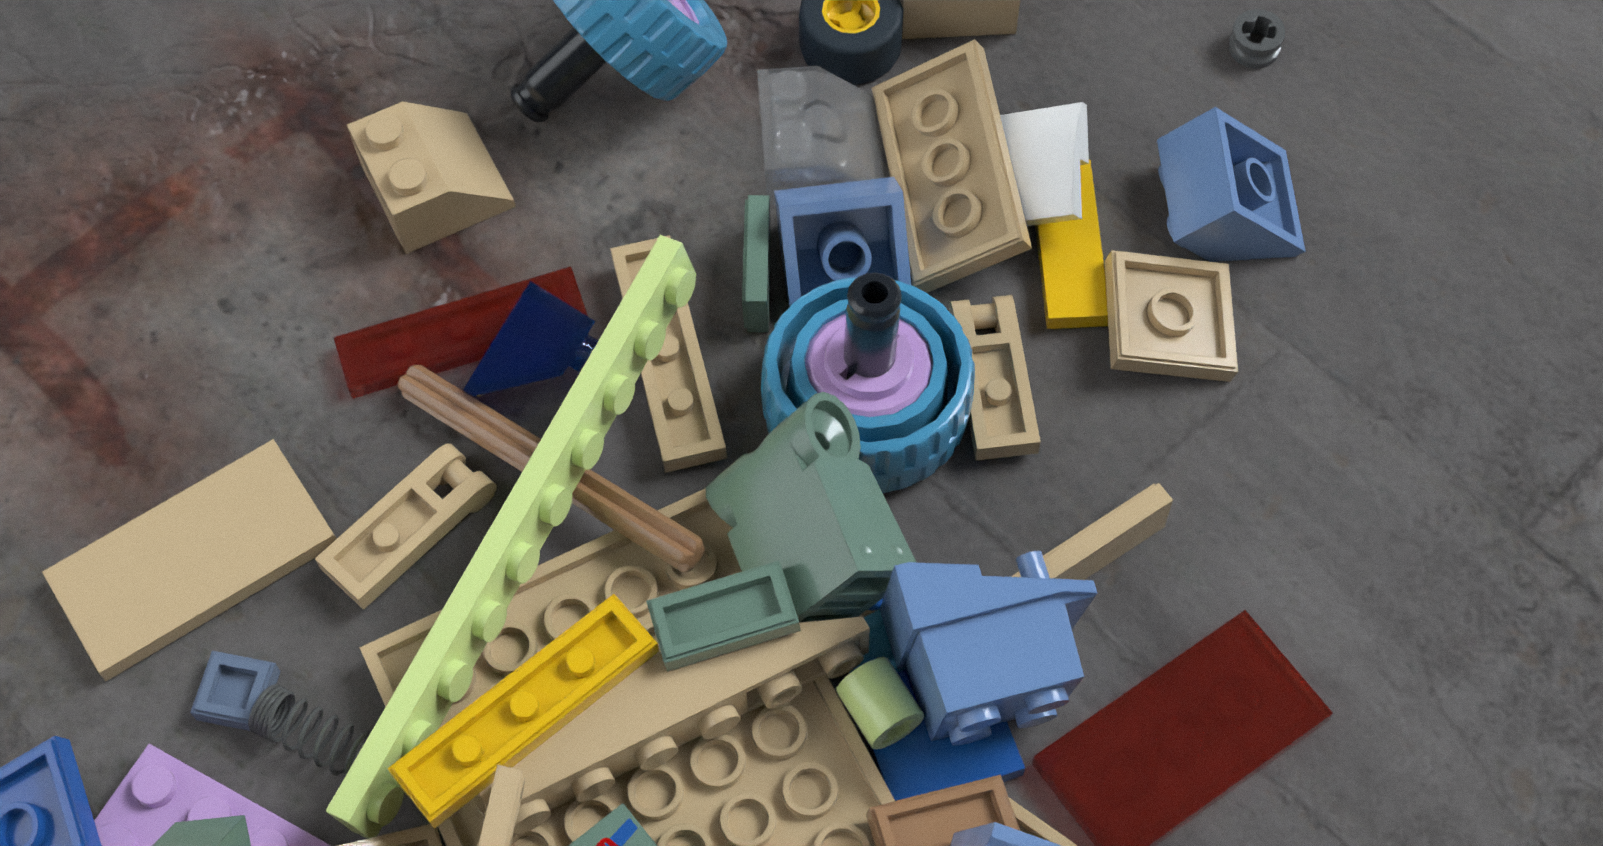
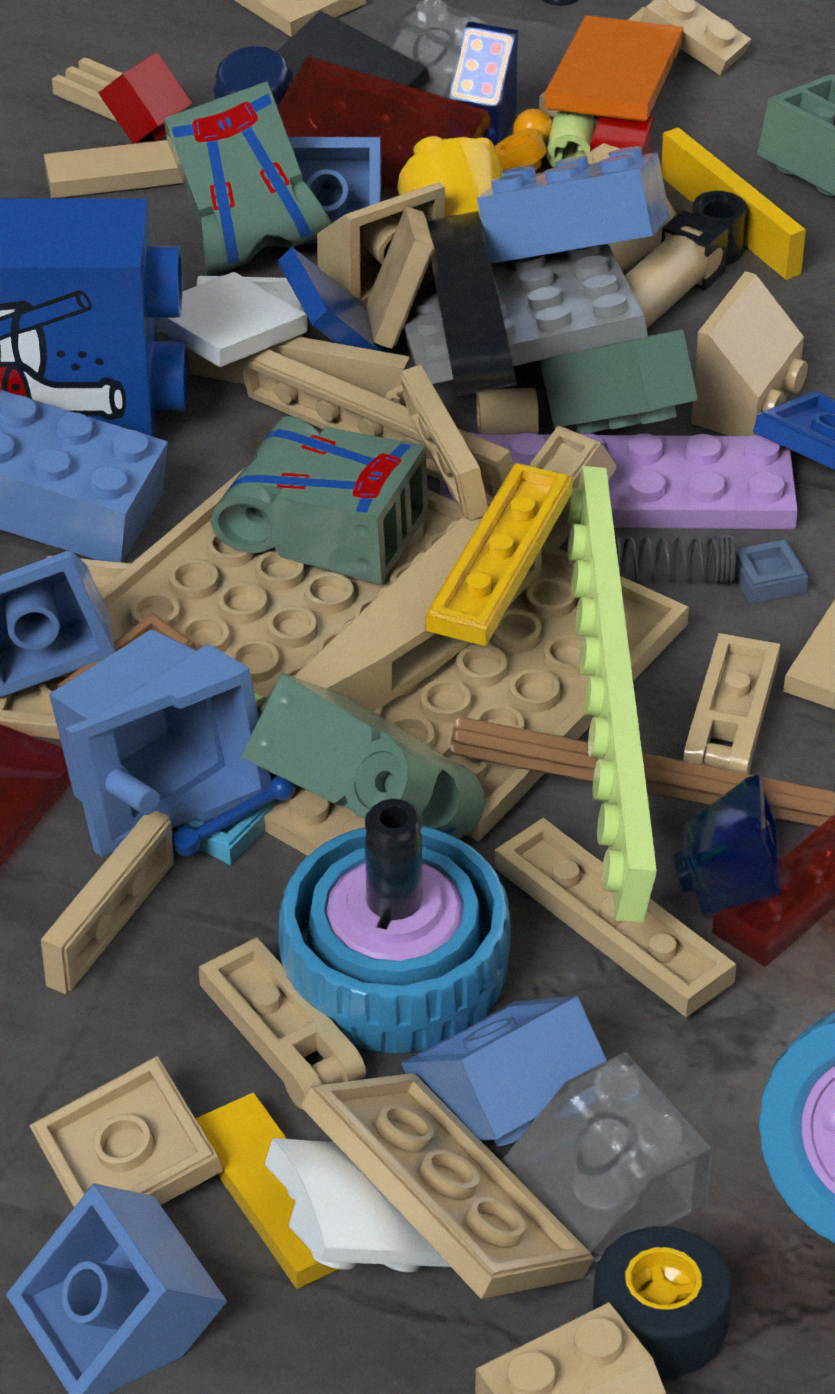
camera: 150 degrees right, 20 degrees down
(723, 615) = (385, 656): sand green tile -> none
(756, 263) = (562, 977): sand green tile -> none

